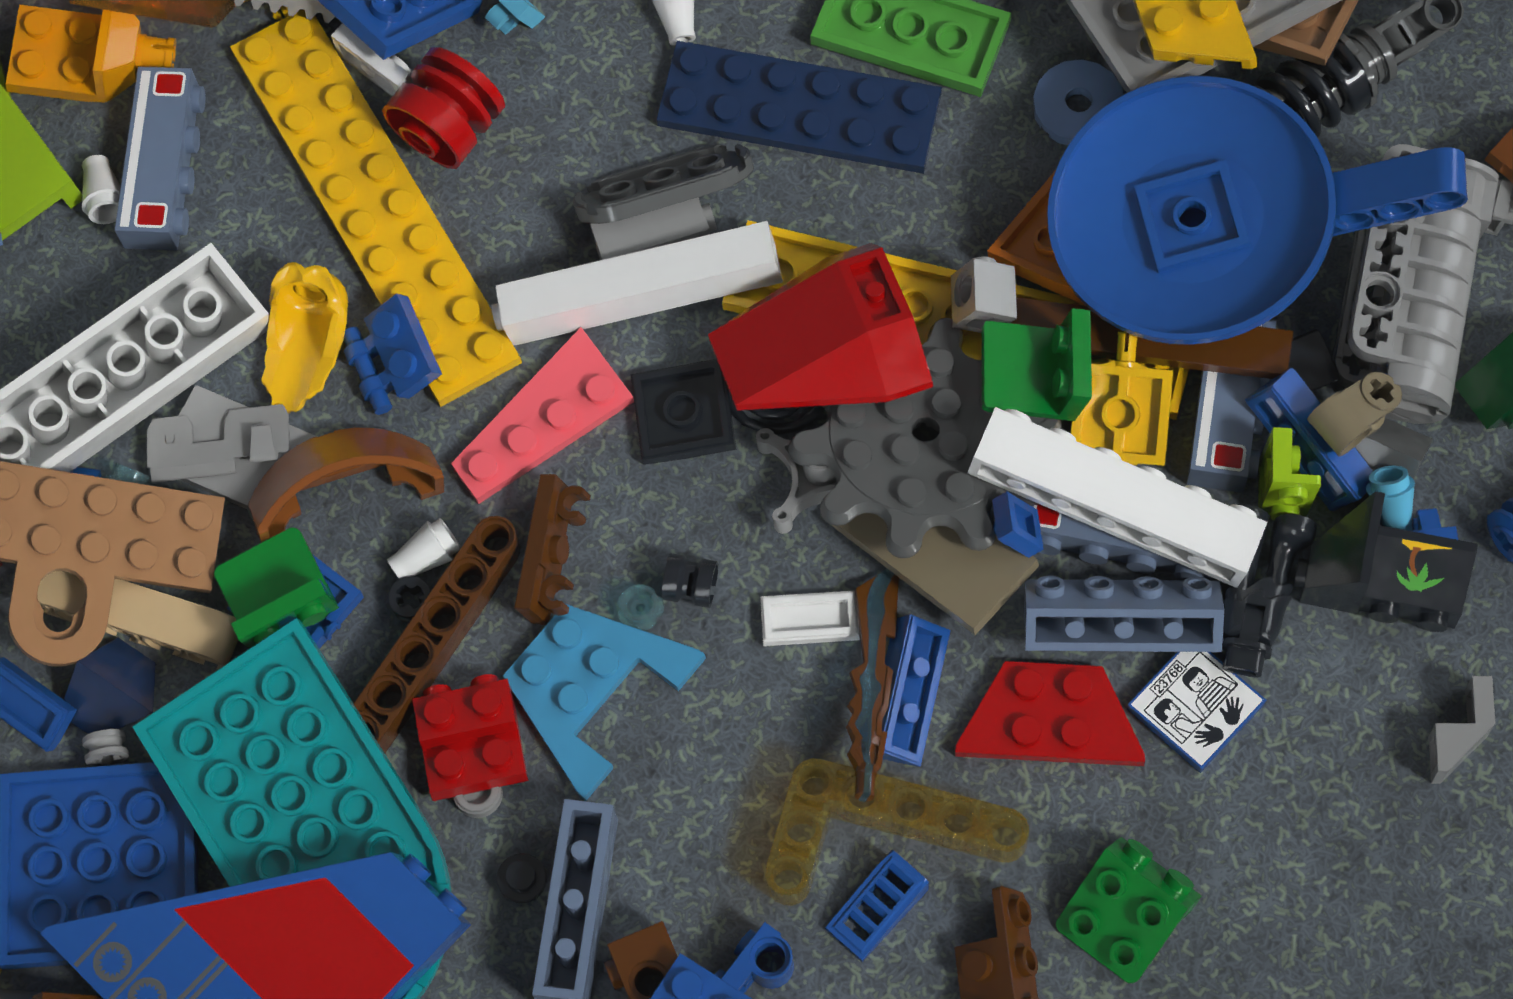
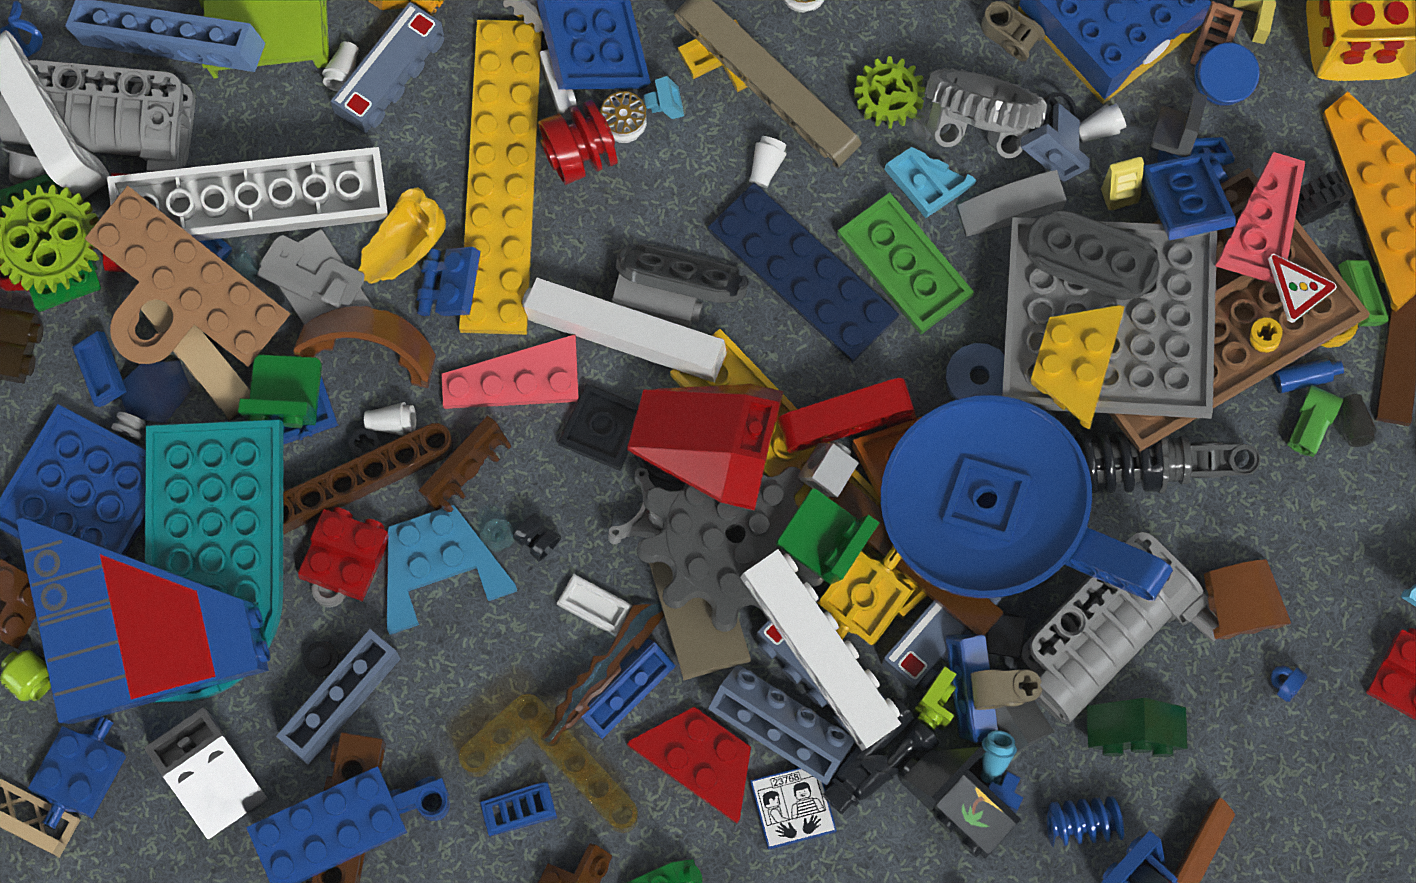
camera: 25 degrees right, 5 degrees up
(480, 48) = (624, 116): none -> white wheel
(960, 227) = (847, 415): none -> red beam
(1017, 524) = (750, 629): blue plate -> none

